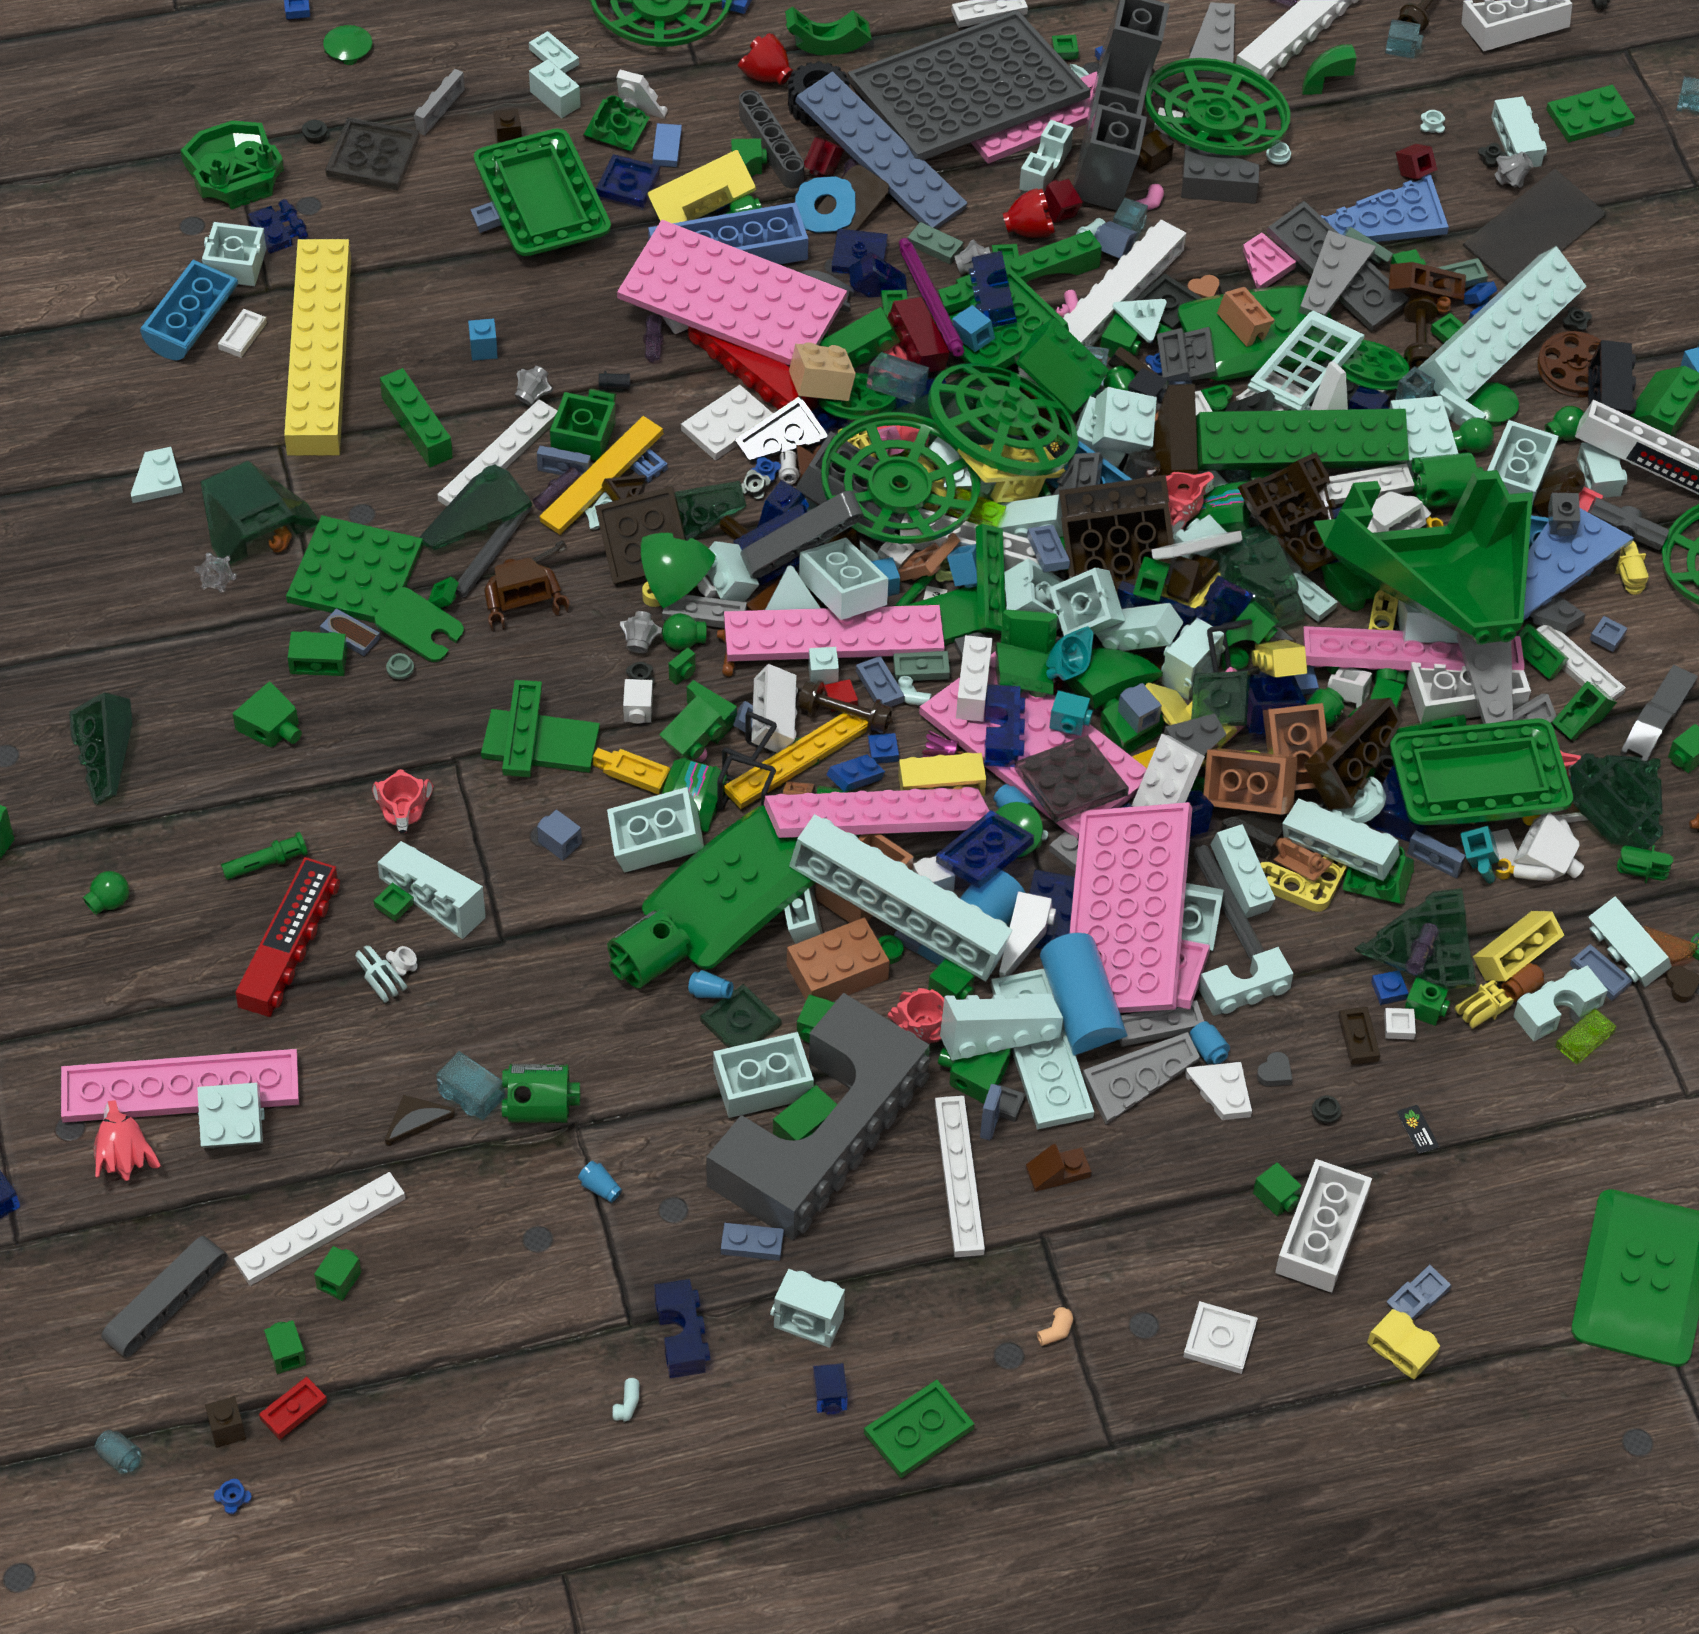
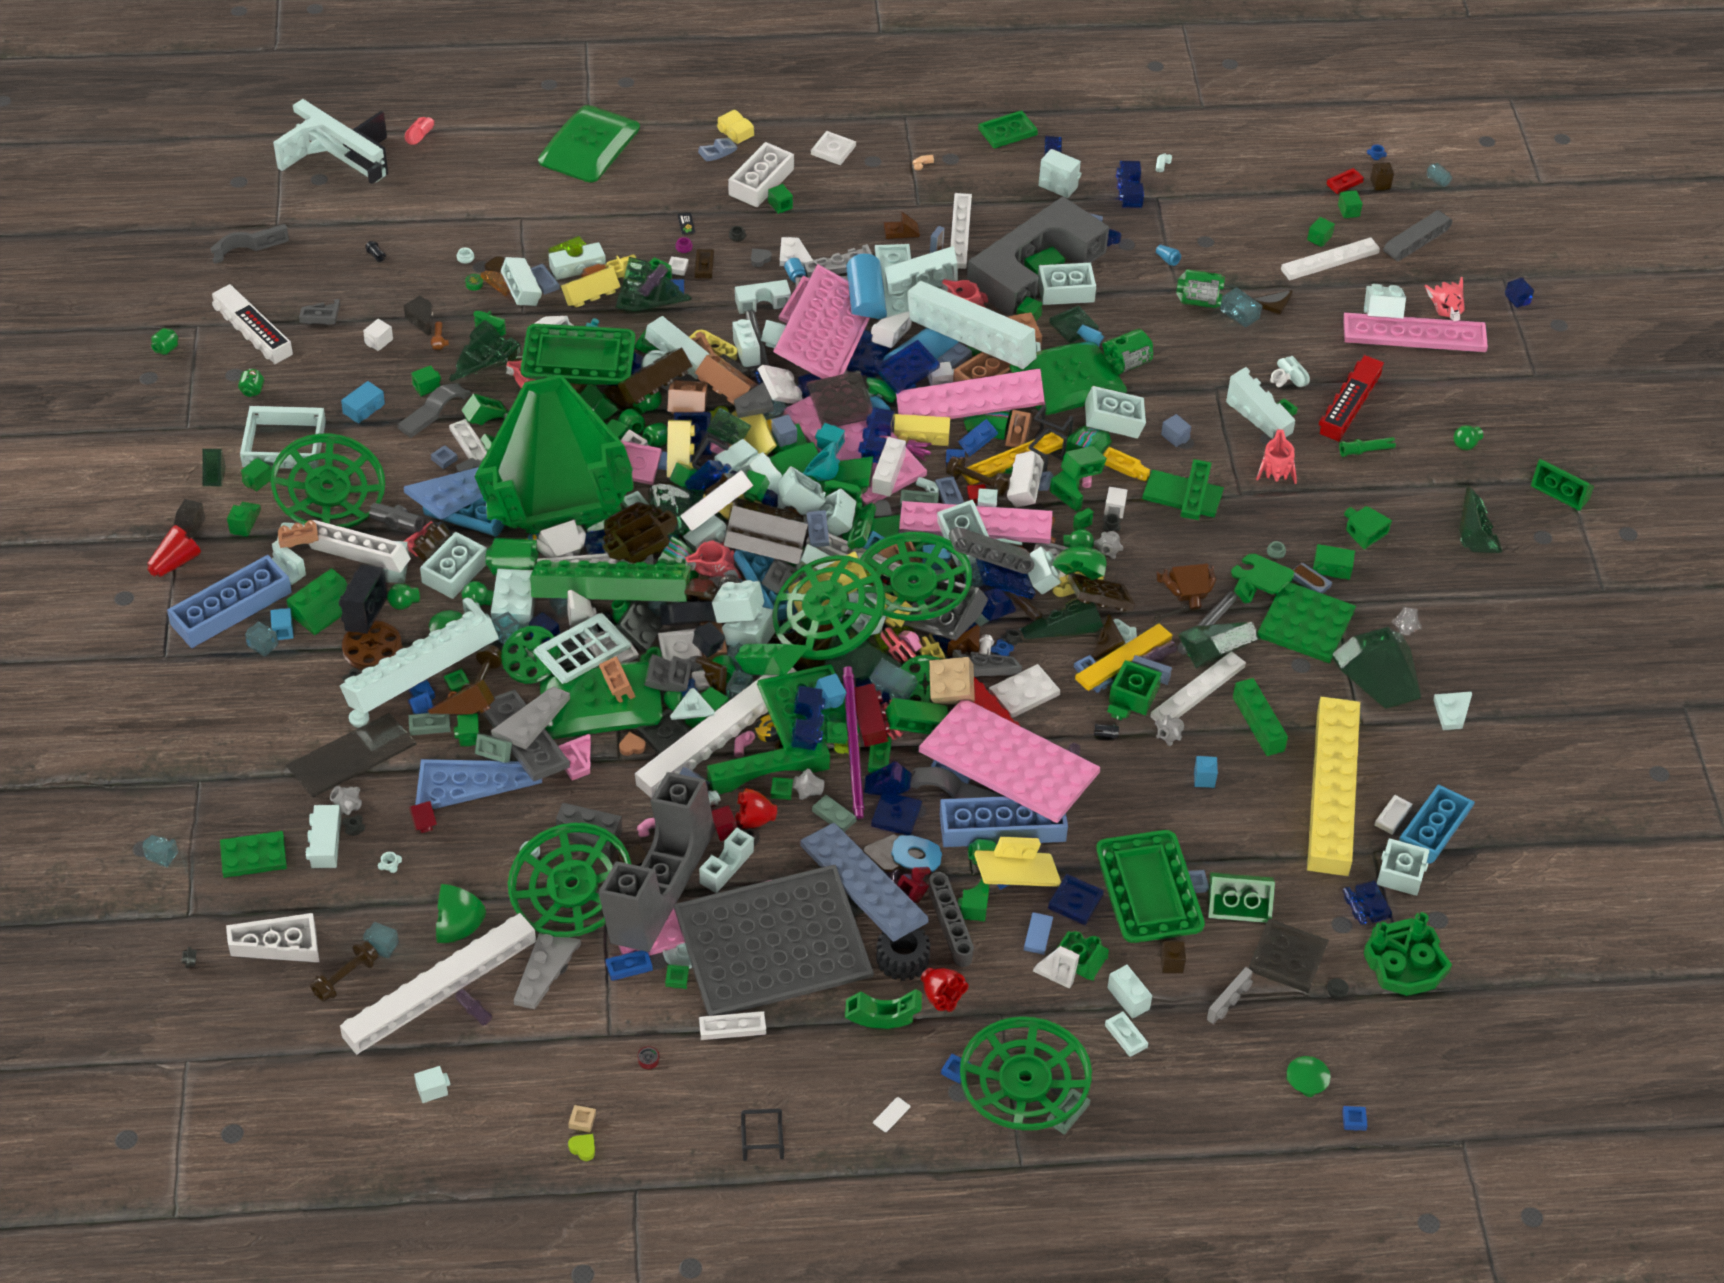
camera: 170 degrees left, 5 degrees down
(431, 208) = (1240, 897): none -> green slope
(703, 1213) = (1114, 237): none -> clear blue tile
(1404, 1071) = (683, 245): none -> magenta plate
(1564, 513) = (449, 491): dark grey brick -> none
(1632, 569) = (405, 500): light yellow arm -> none

